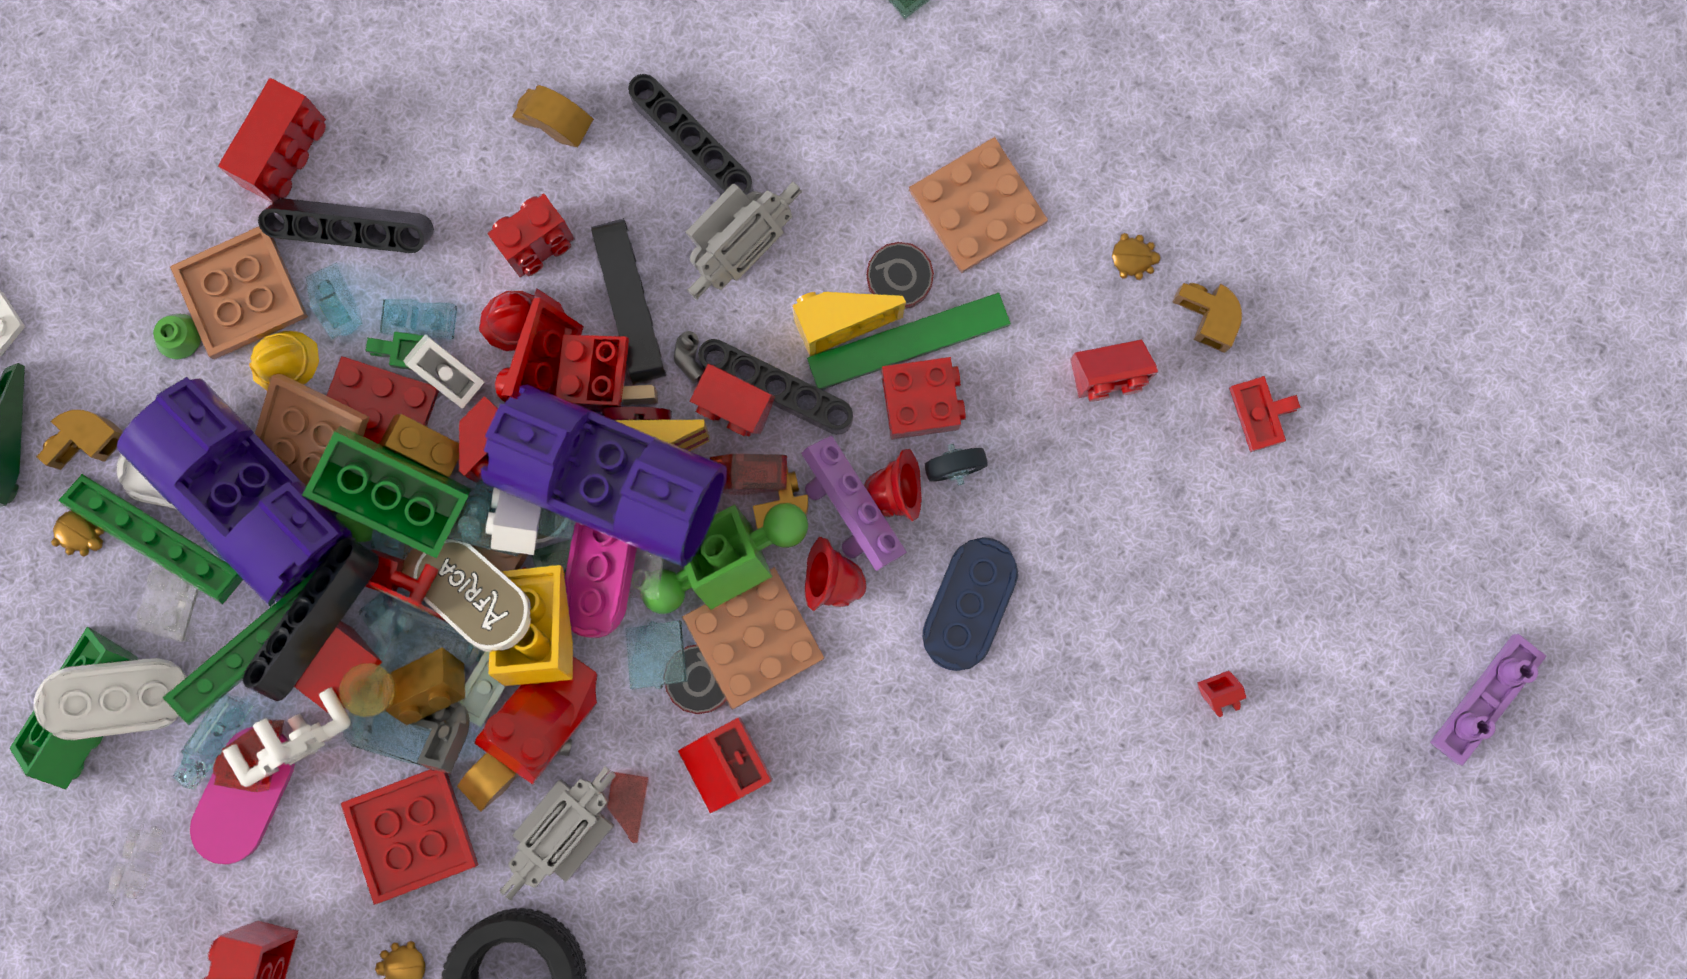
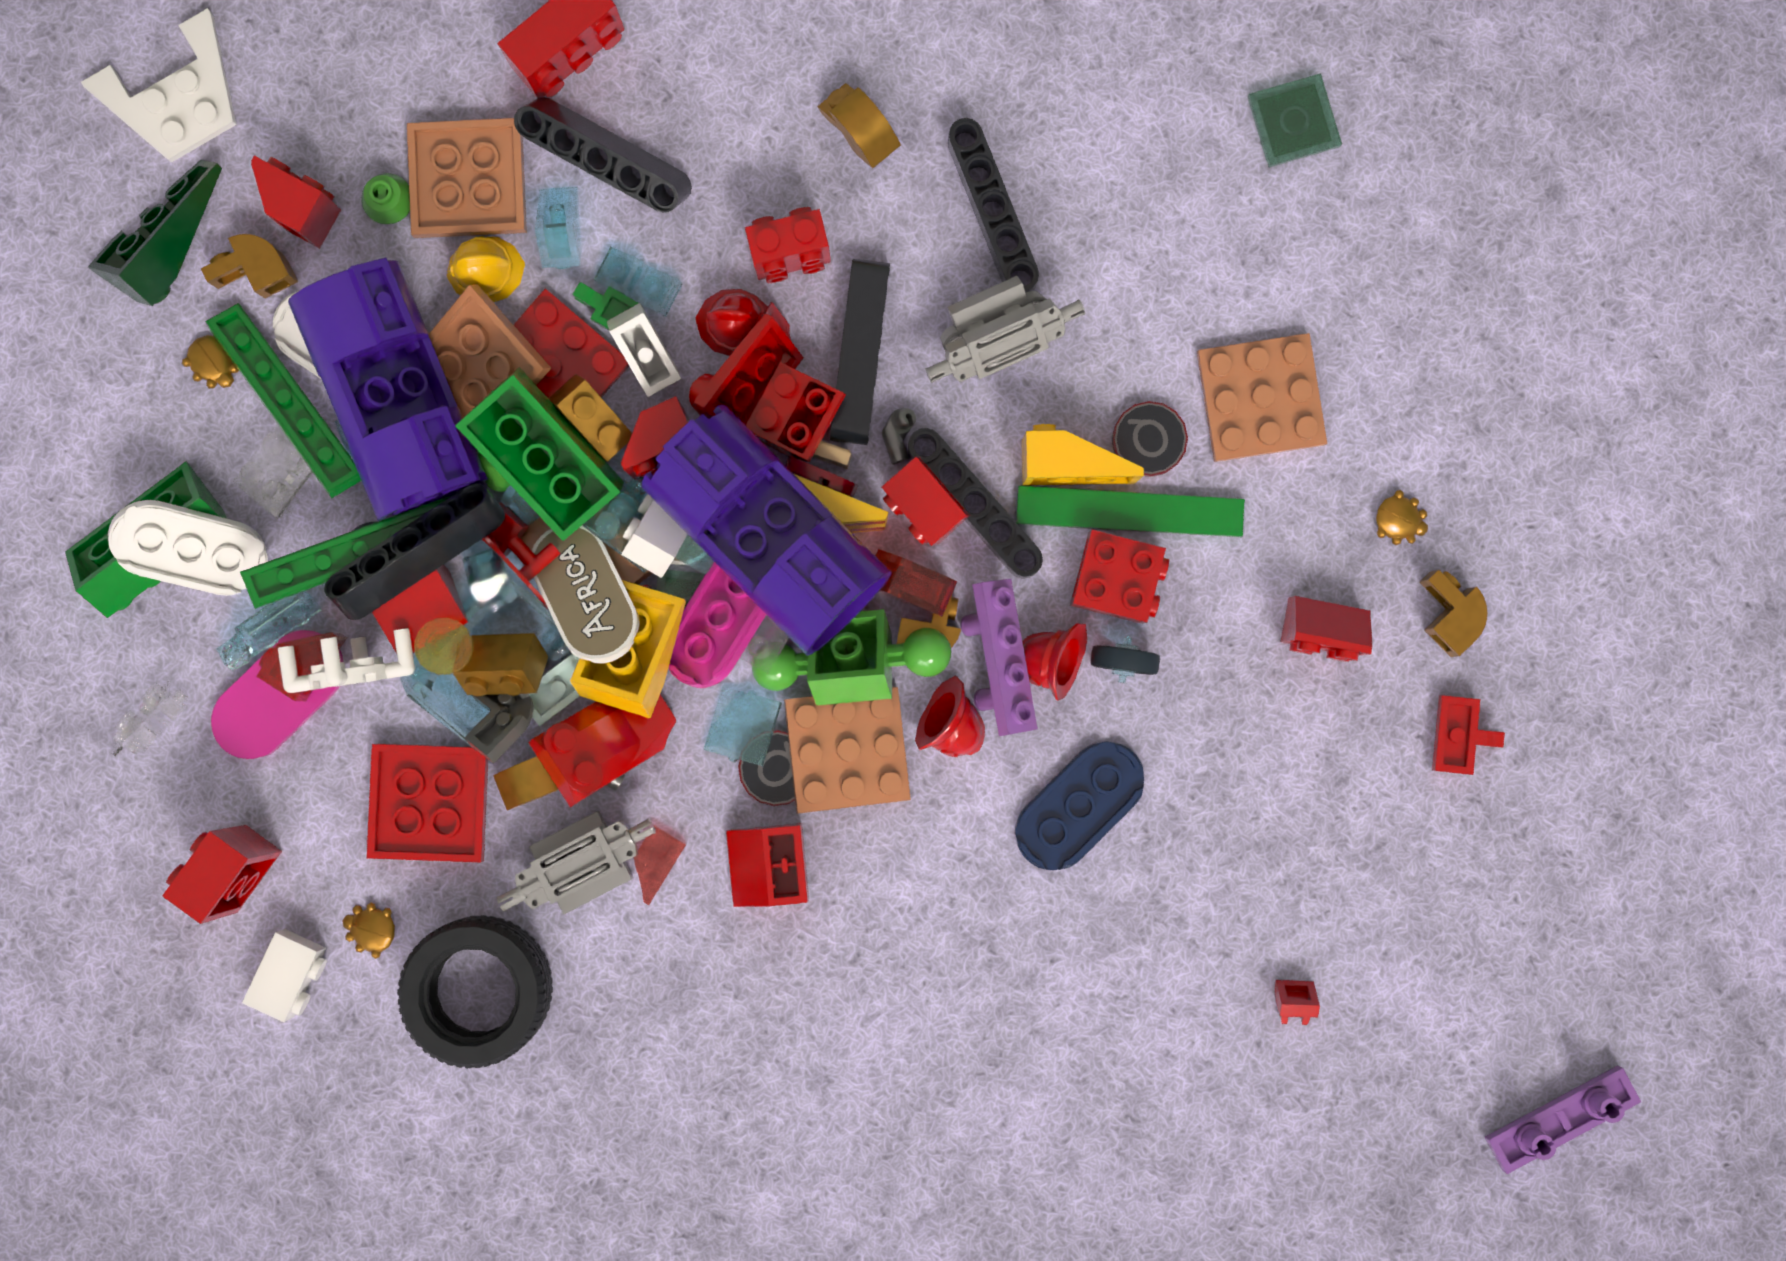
camera: 20 degrees right, 5 degrees up
(97, 367) = (295, 202): none -> red slope

